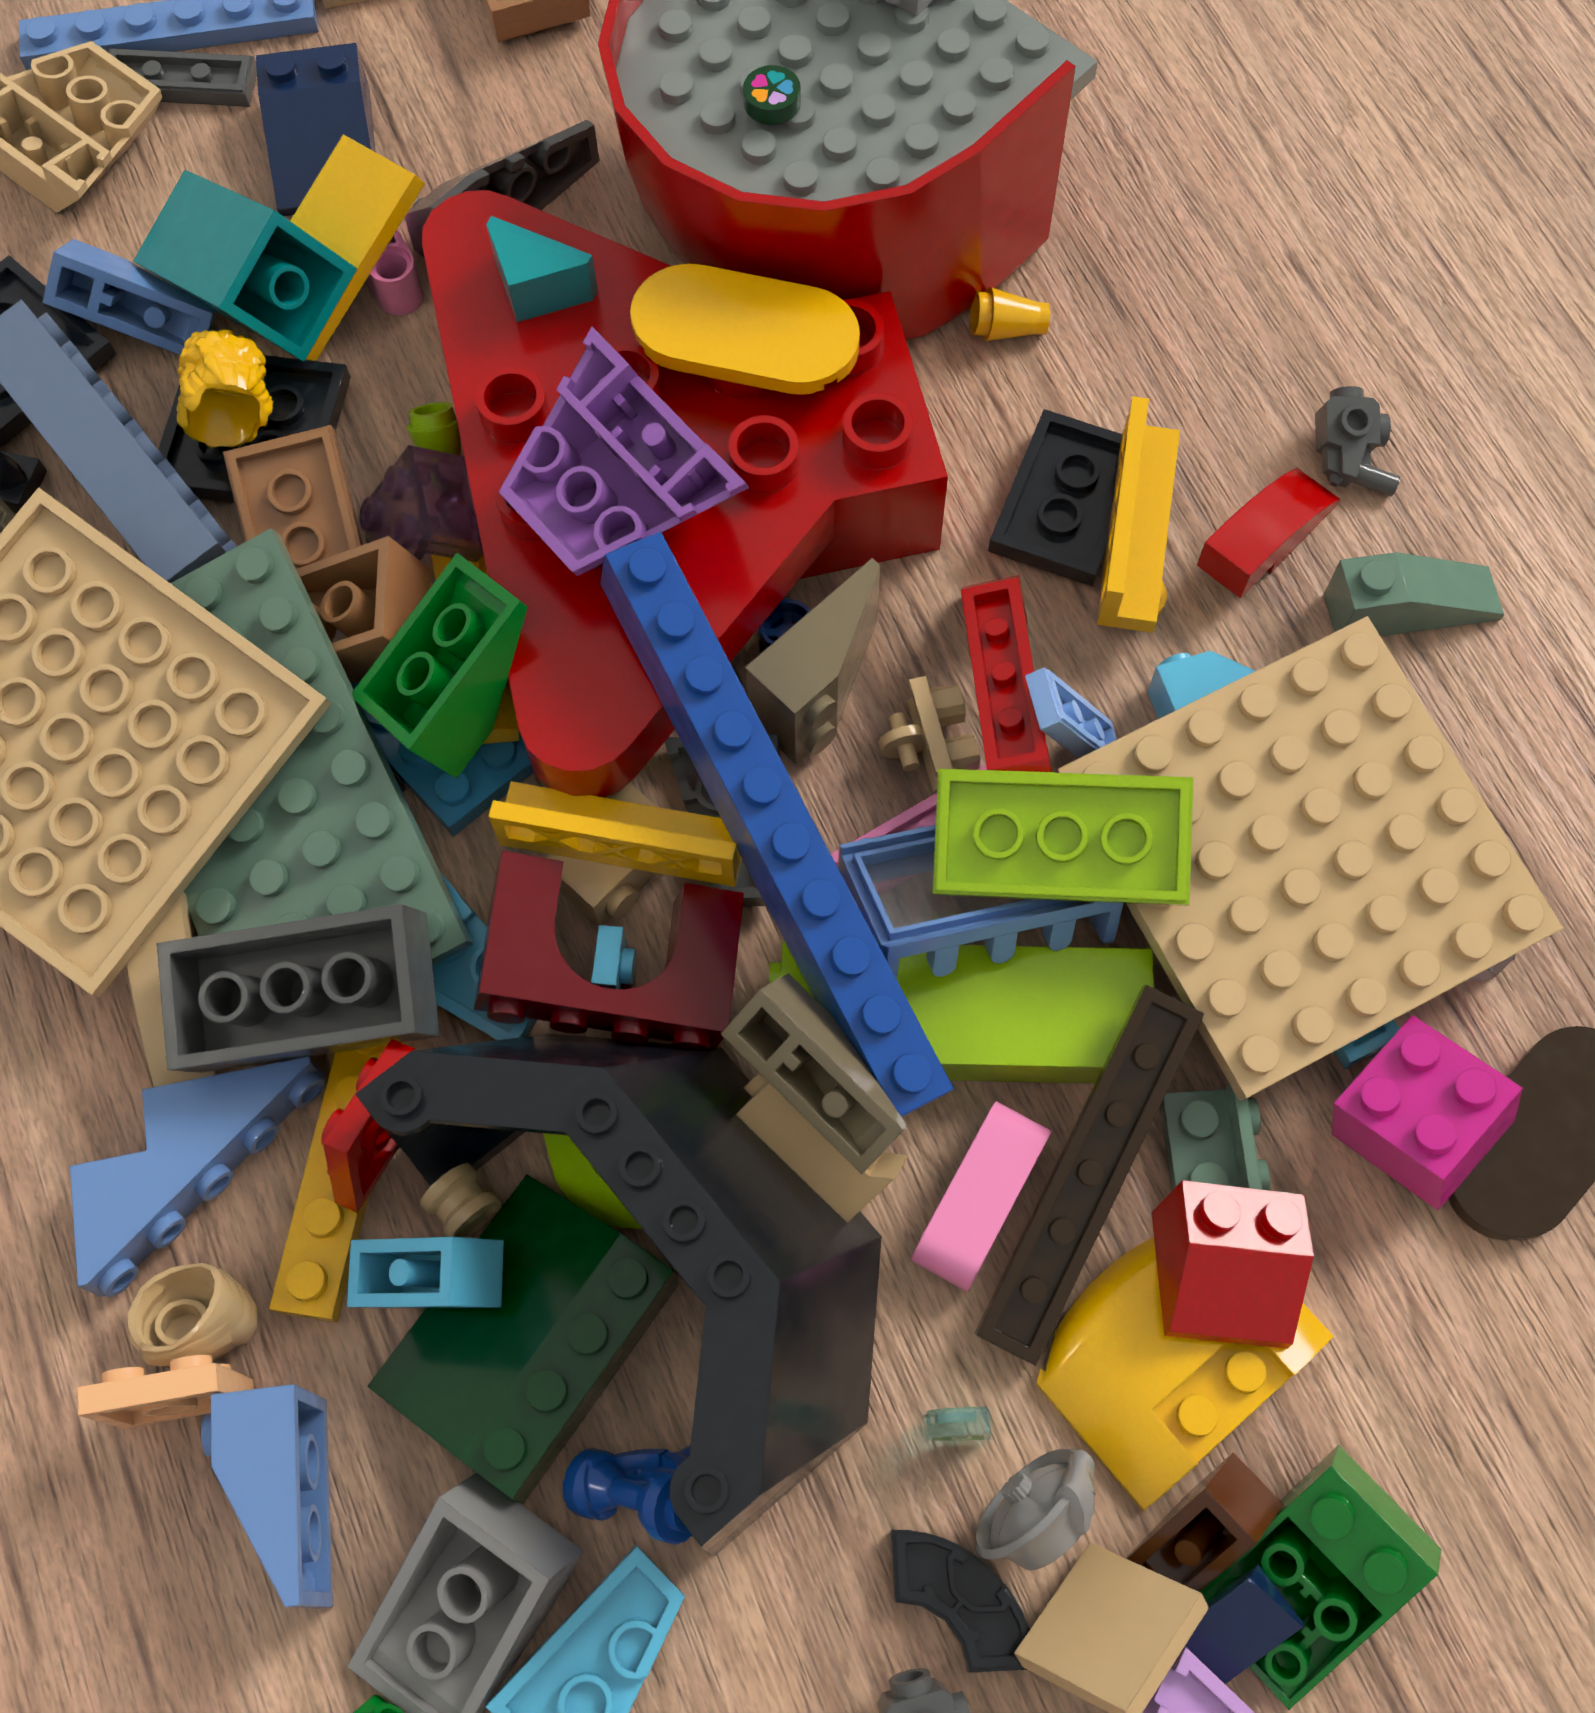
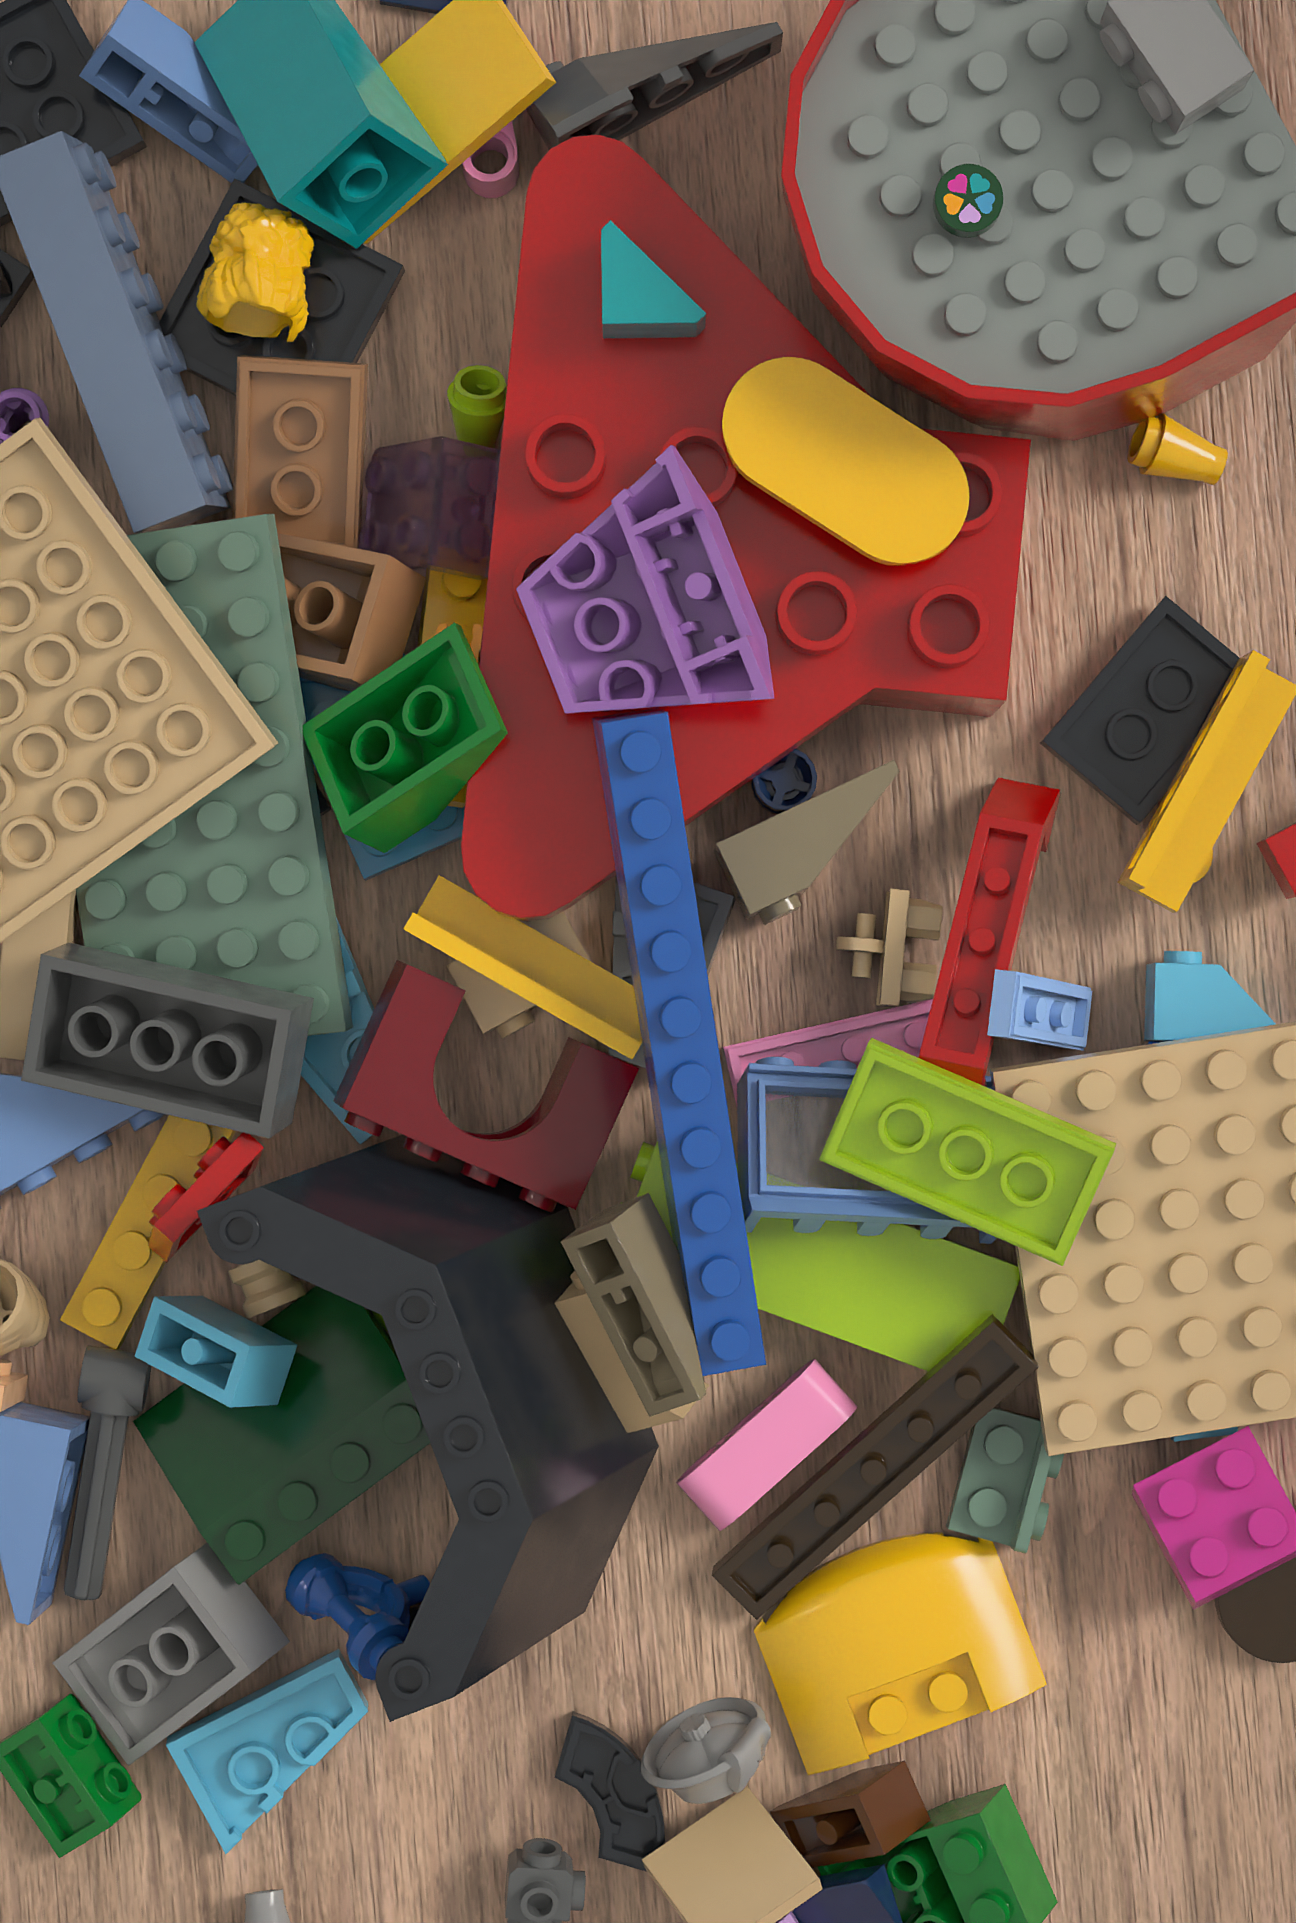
camera: 15 degrees right, 20 degrees up
(336, 1355) = (112, 1388): none -> dark grey axle
(613, 960) = (486, 1090): medium azure plate -> none
(957, 1424) = (665, 1647): clear light blue tile -> none
(1232, 1263) = (970, 1601): red slope -> none

